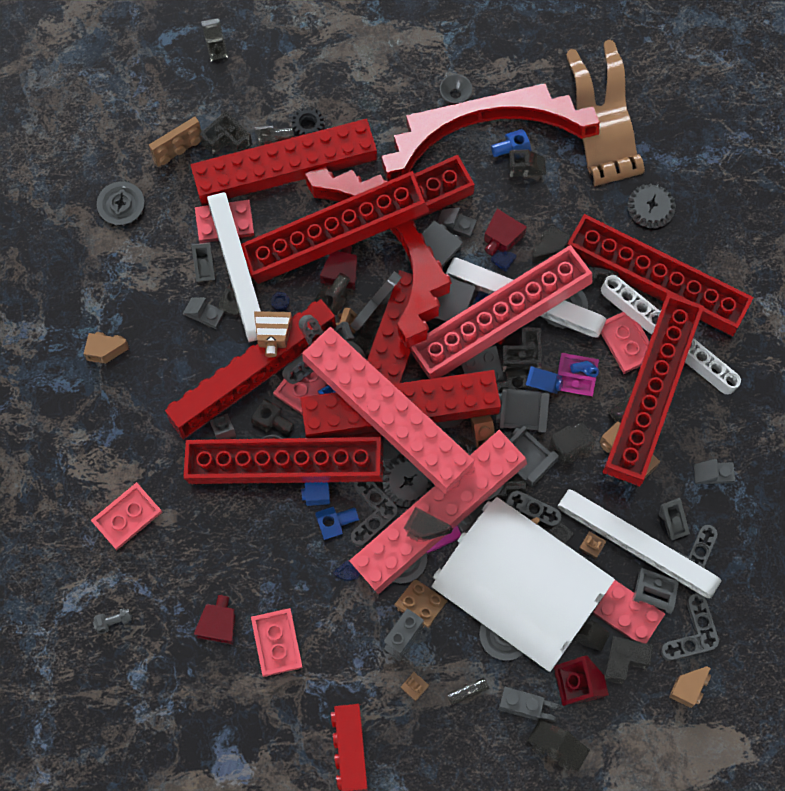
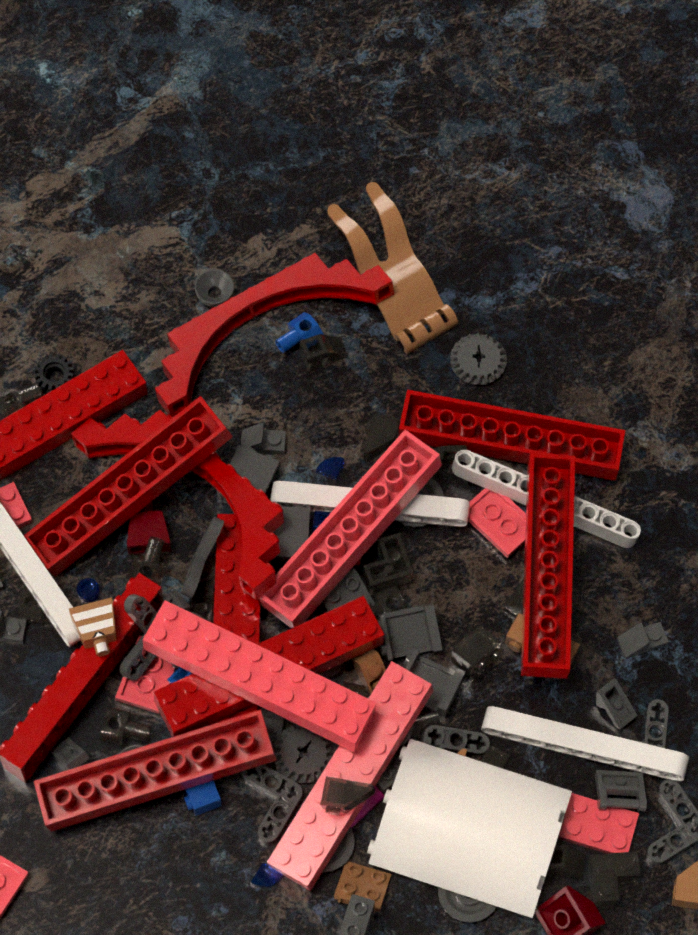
camera: 20 degrees left, 5 degrees down
(340, 519) = (238, 819): blue piece -> none
(347, 316) = (173, 583): medium nougat tile -> none
(444, 184) = (238, 398): red brick -> none
(503, 233) = (321, 437): dark red torso -> none
(544, 380) = (422, 591): blue slope -> none
(576, 382) = (455, 574): dark pink slope -> none
(585, 367) = (463, 563): blue arm -> none
(592, 545) = (534, 761): medium nougat tile -> none

